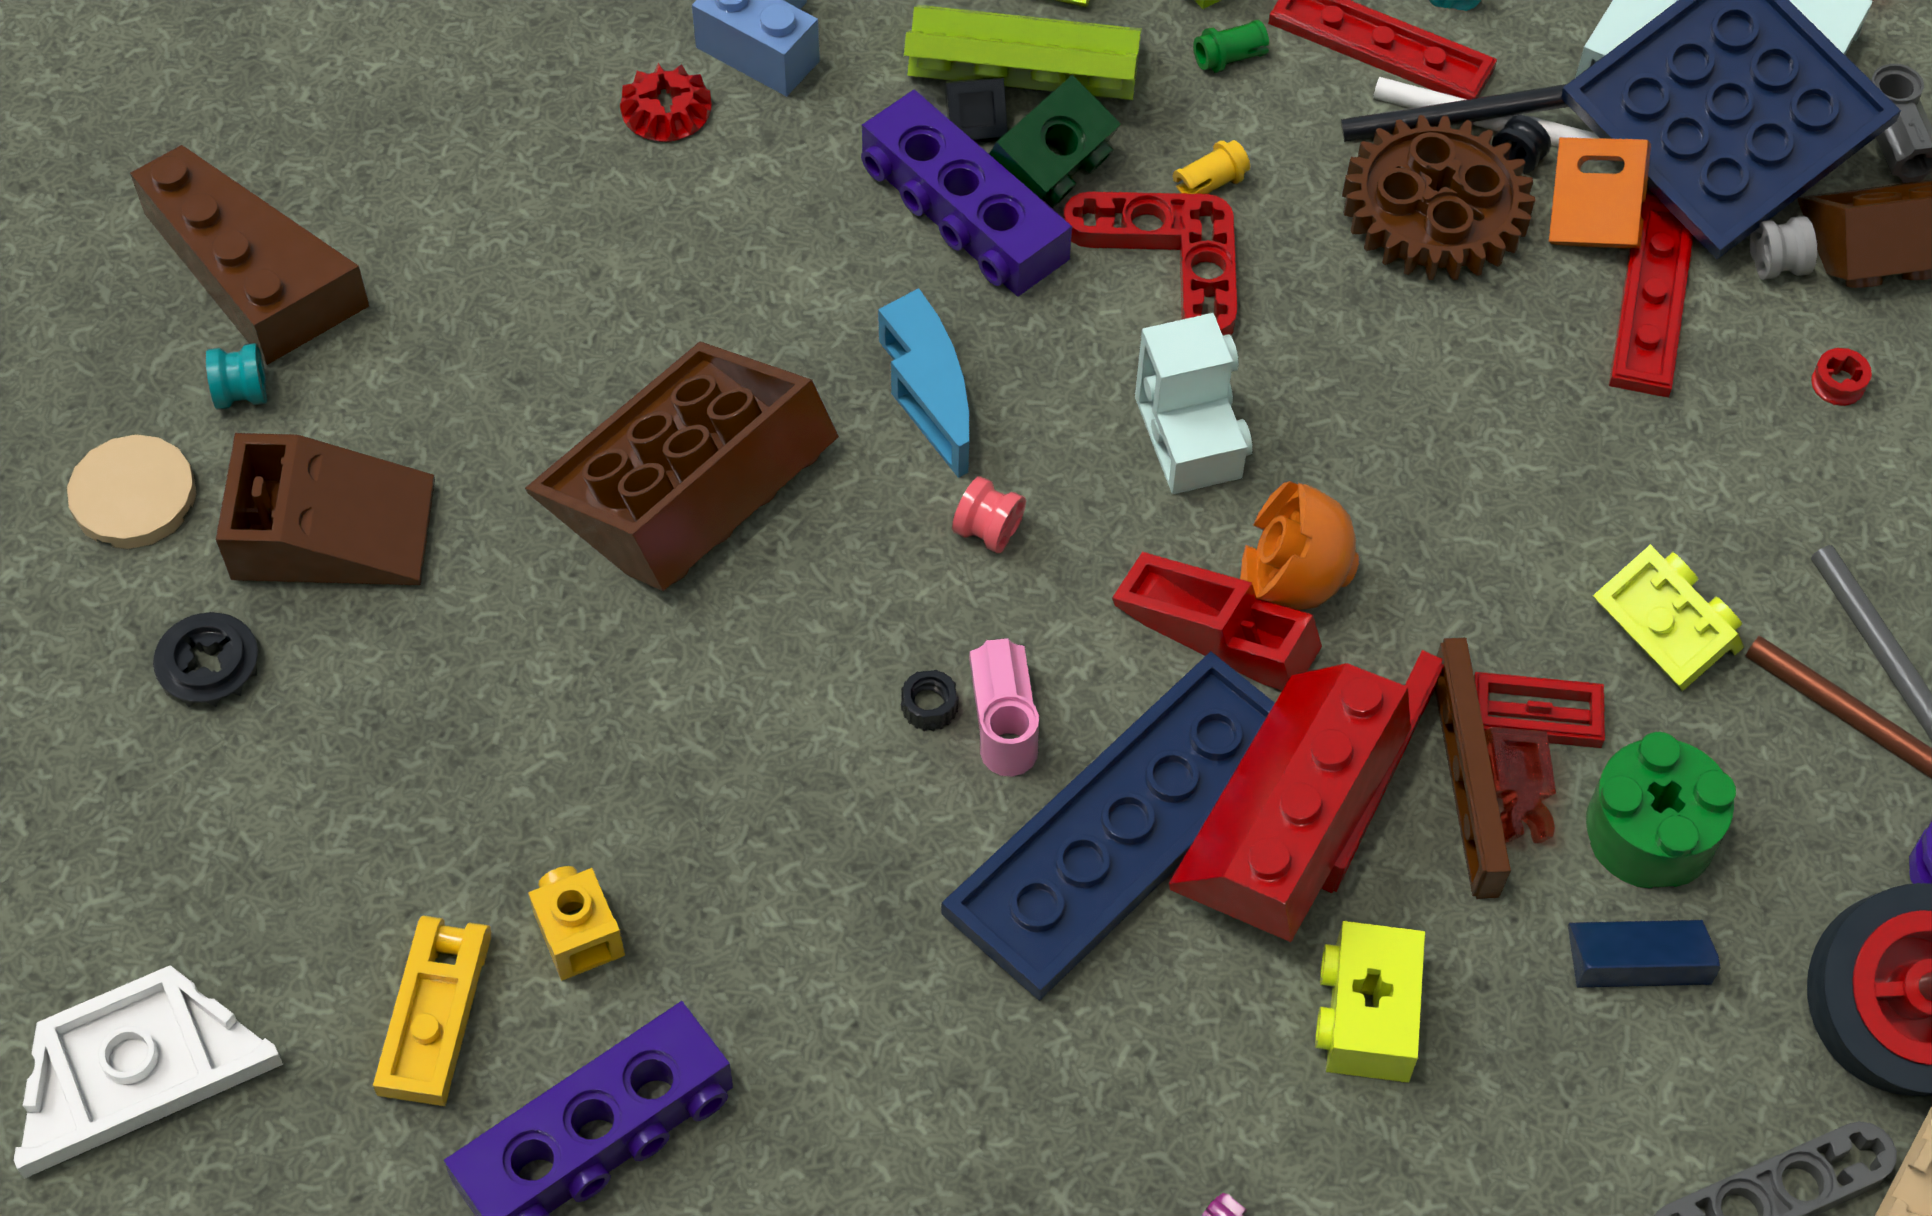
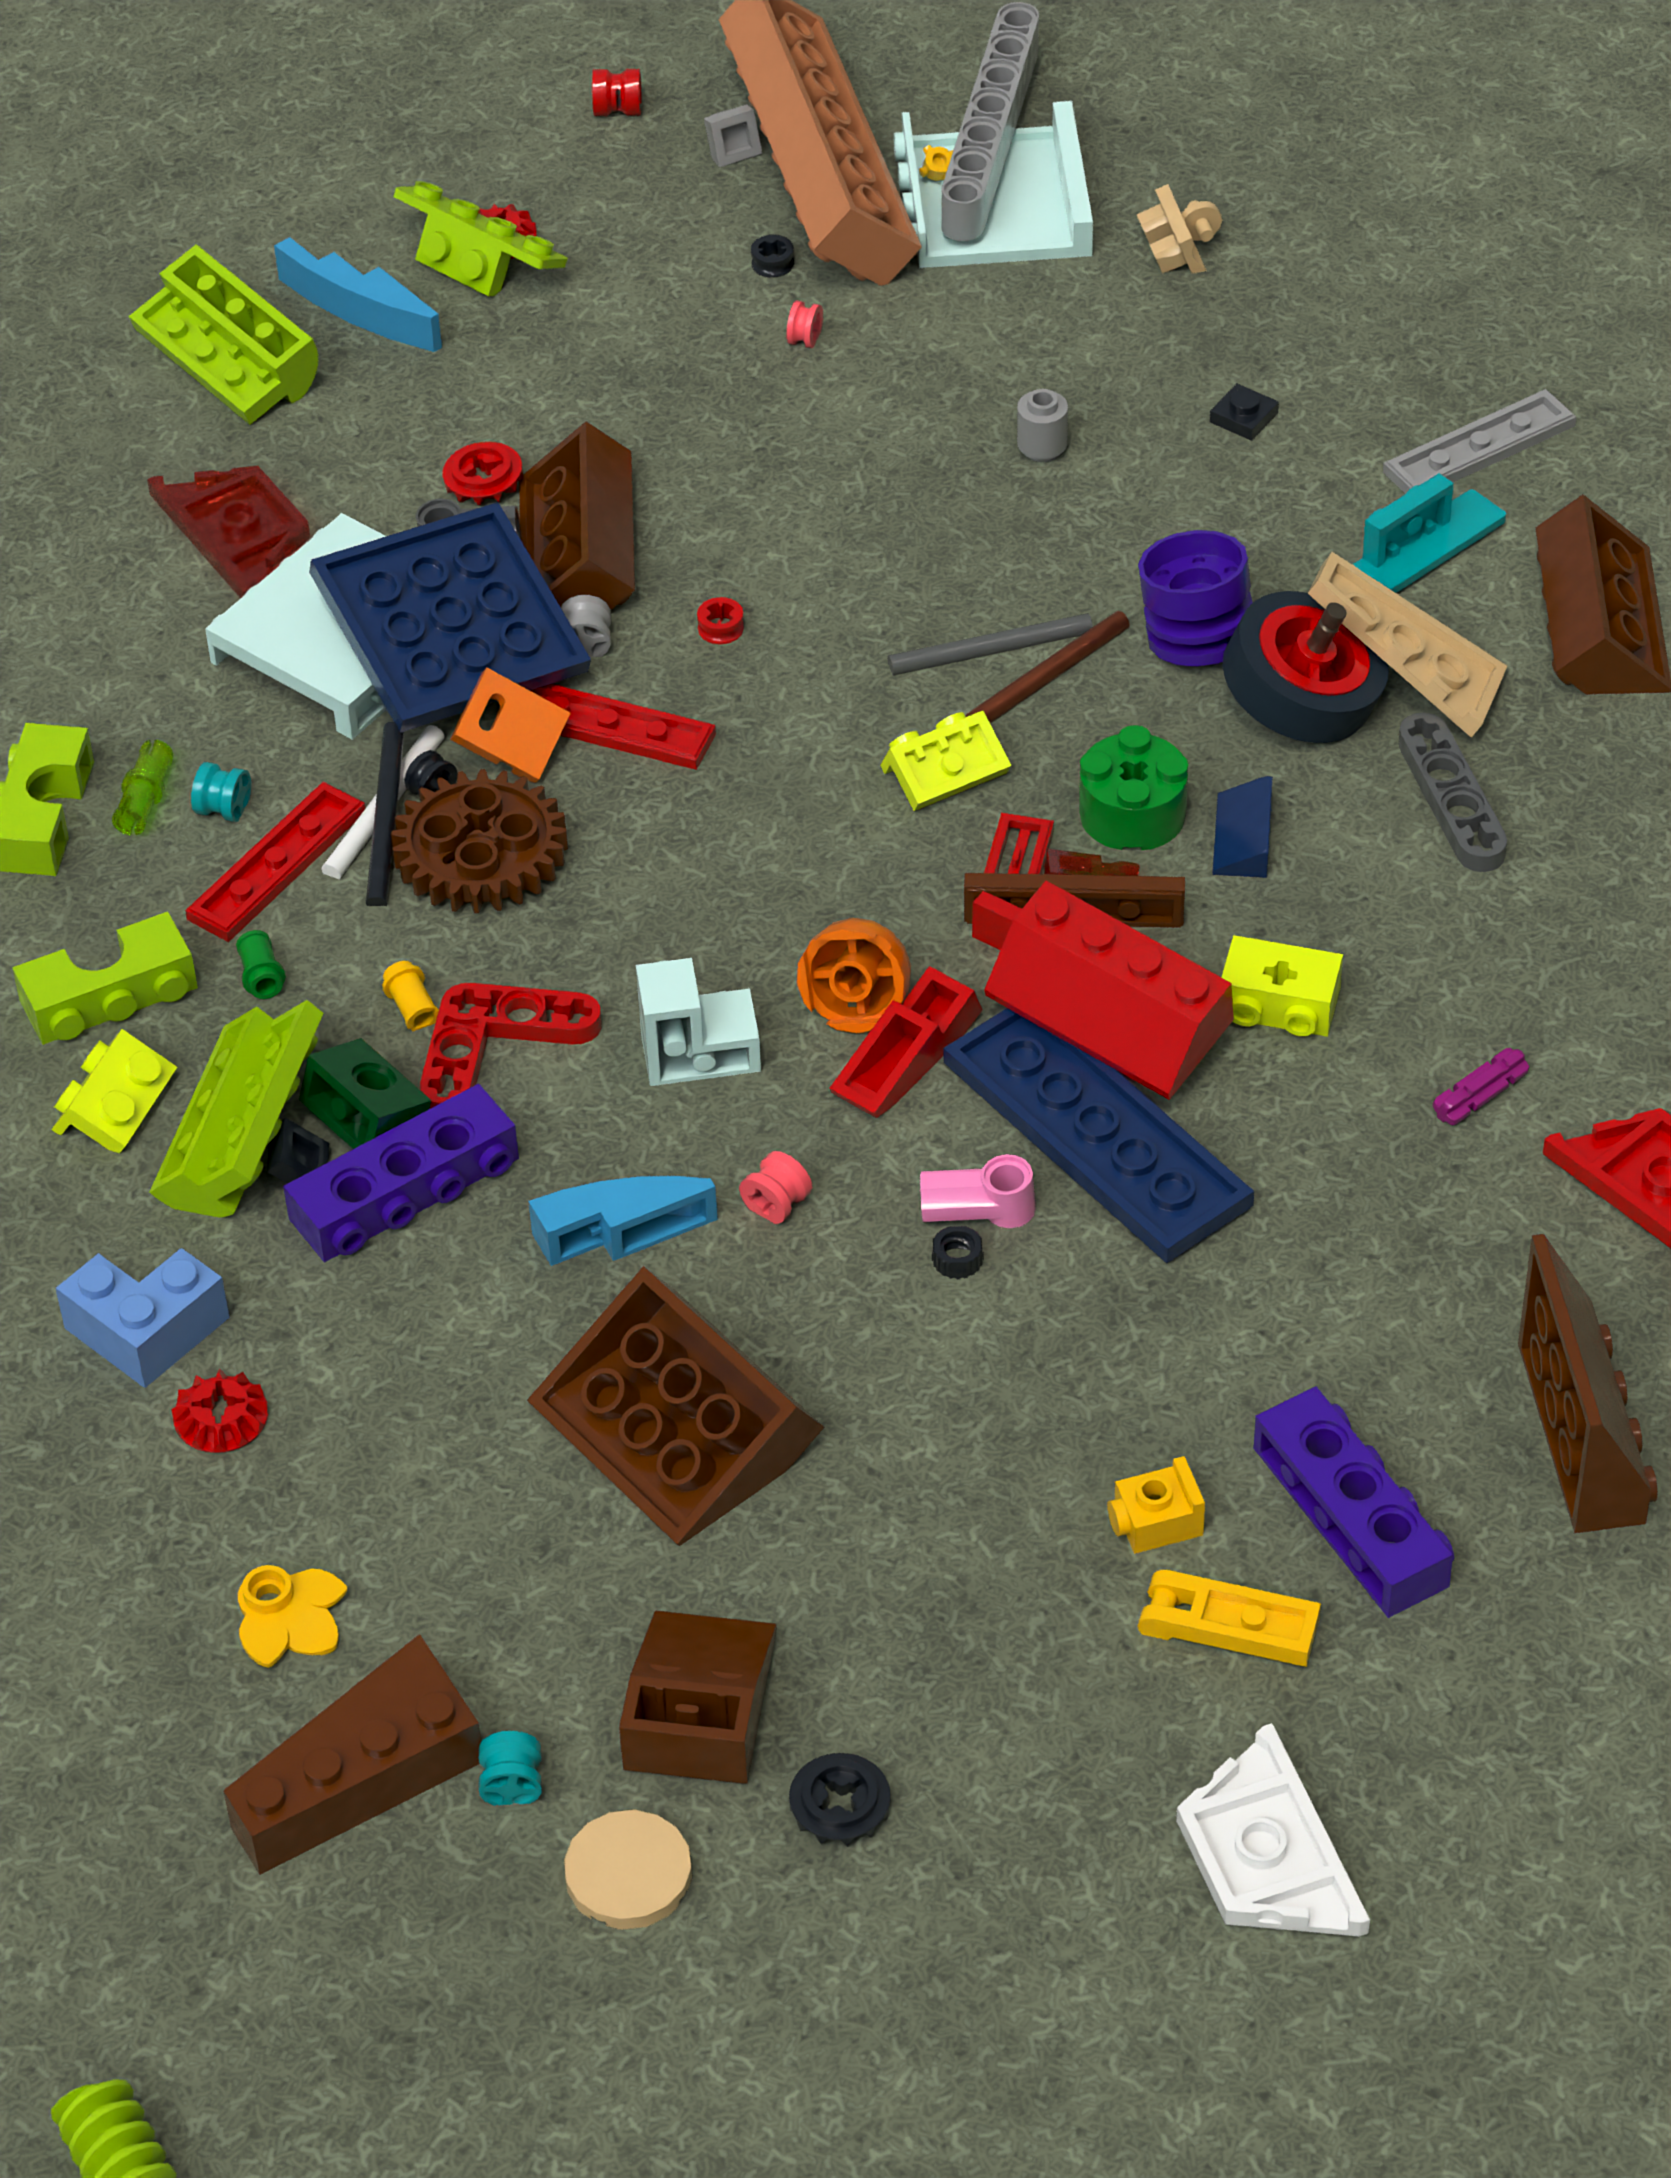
camera: 80 degrees left, 10 degrees down
(424, 192) = (293, 1619): none -> yellow plate

